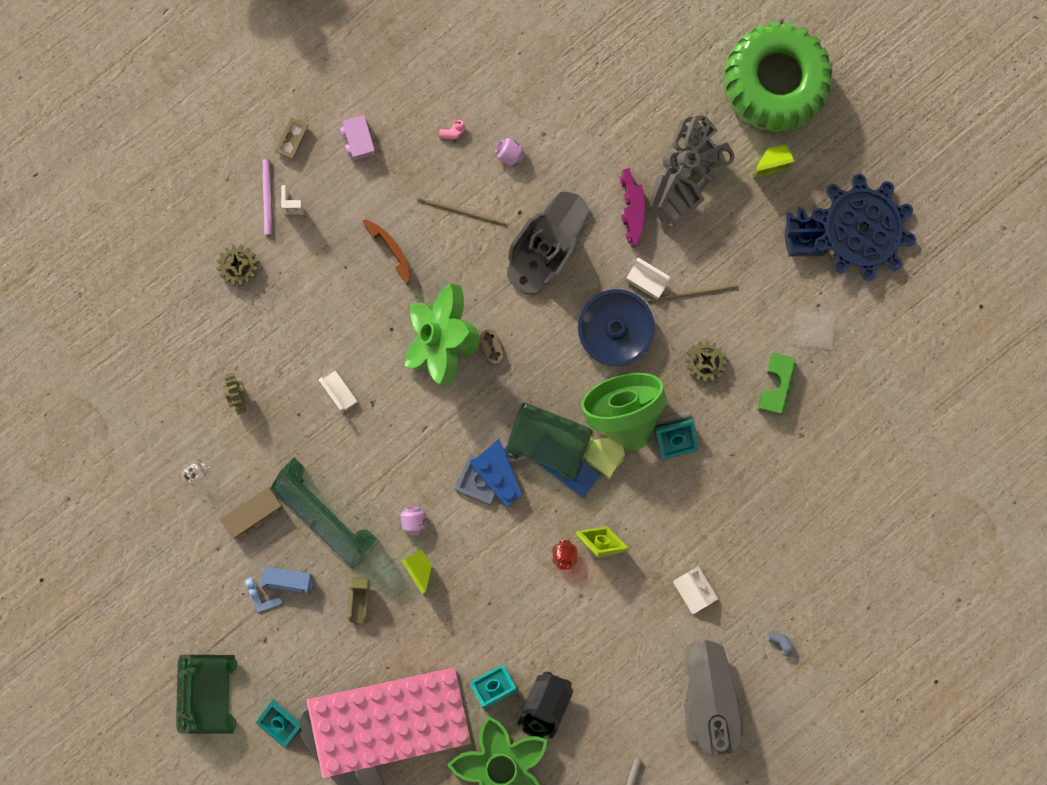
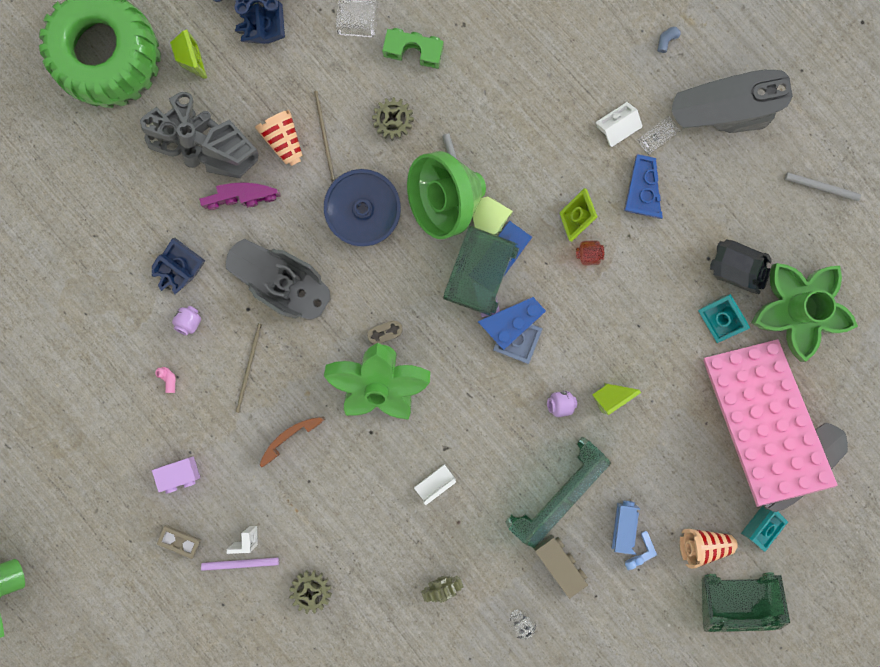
camera: 85 degrees left, 5 degrees up
(264, 658) = (705, 547): none -> light nougat cone
(359, 600) = (643, 455): olive animal -> none
(564, 143) = (176, 266): none -> dark blue plate
(628, 612) = (643, 190): none -> blue wing
(648, 279) = (311, 178): white panel -> none
(676, 439) = (471, 145): teal slope -> none
(689, 250) = (282, 137): none -> light nougat cone

